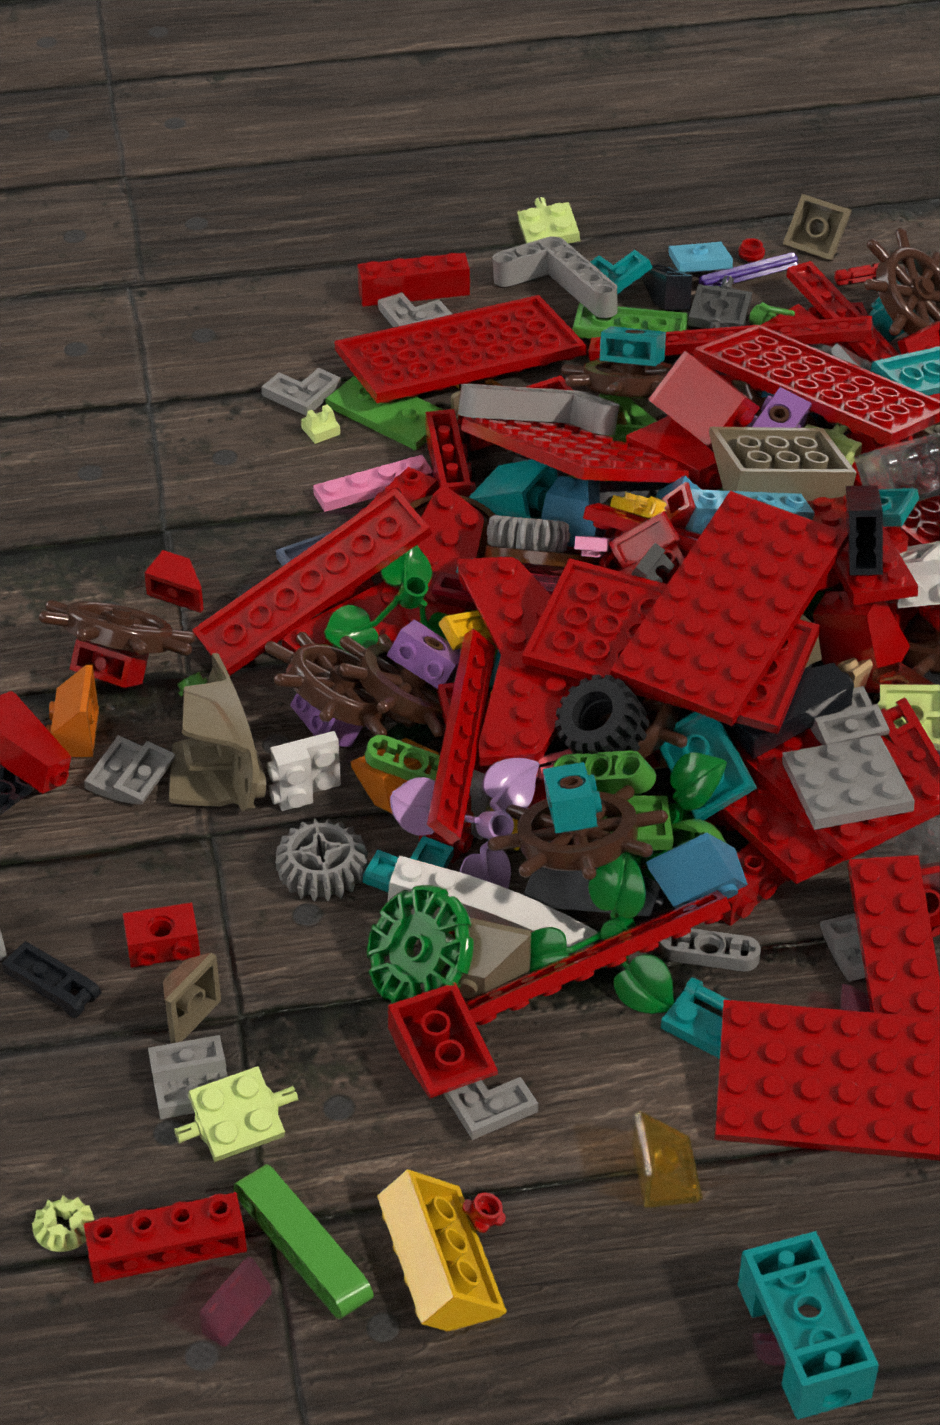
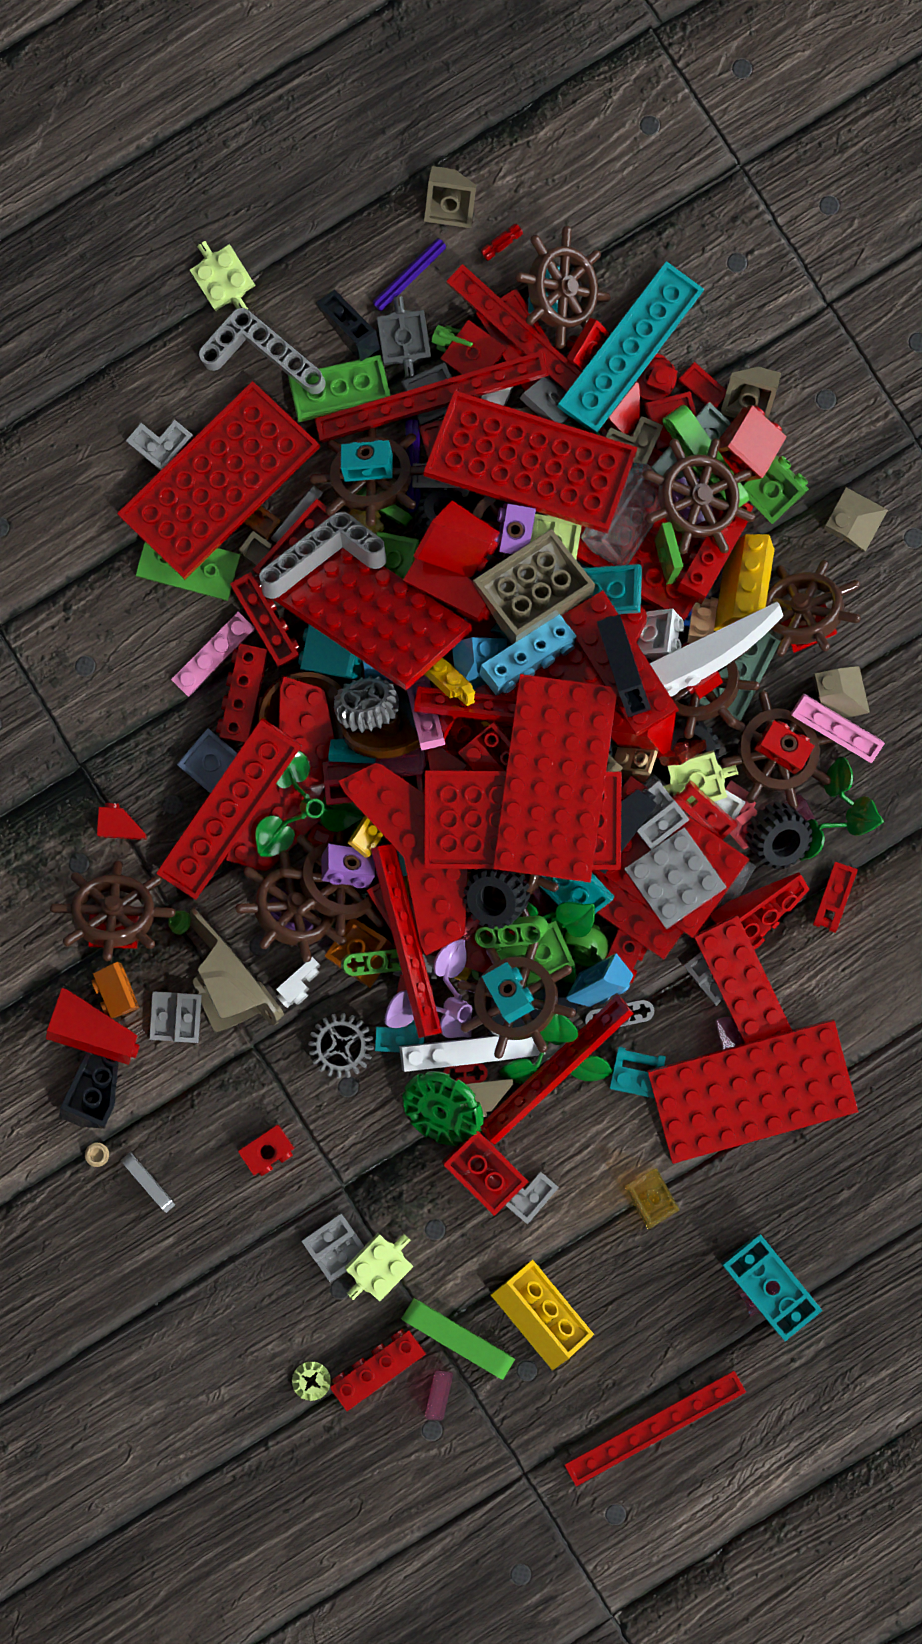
camera: 20 degrees left, 40 degrees up
(51, 978) = (211, 1210): black plate -> none
(191, 994) = (306, 1194): dark tan slope -> none
(301, 395) = (118, 577): light grey plate -> none
(320, 425) = (144, 605): yellowish green tile -> none
(414, 277) = (143, 401): red brick -> none
(484, 1211) = (562, 1275): red plate -> none
(624, 271) = (306, 336): teal plate -> none
(636, 543) = (468, 724): red tile -> none
(651, 561) = (483, 755): dark grey tile -> none
(680, 505) = (480, 679): red slope -> none
(700, 257) = (365, 275): medium azure plate -> none
(751, 250) = (403, 245): red plate -> none

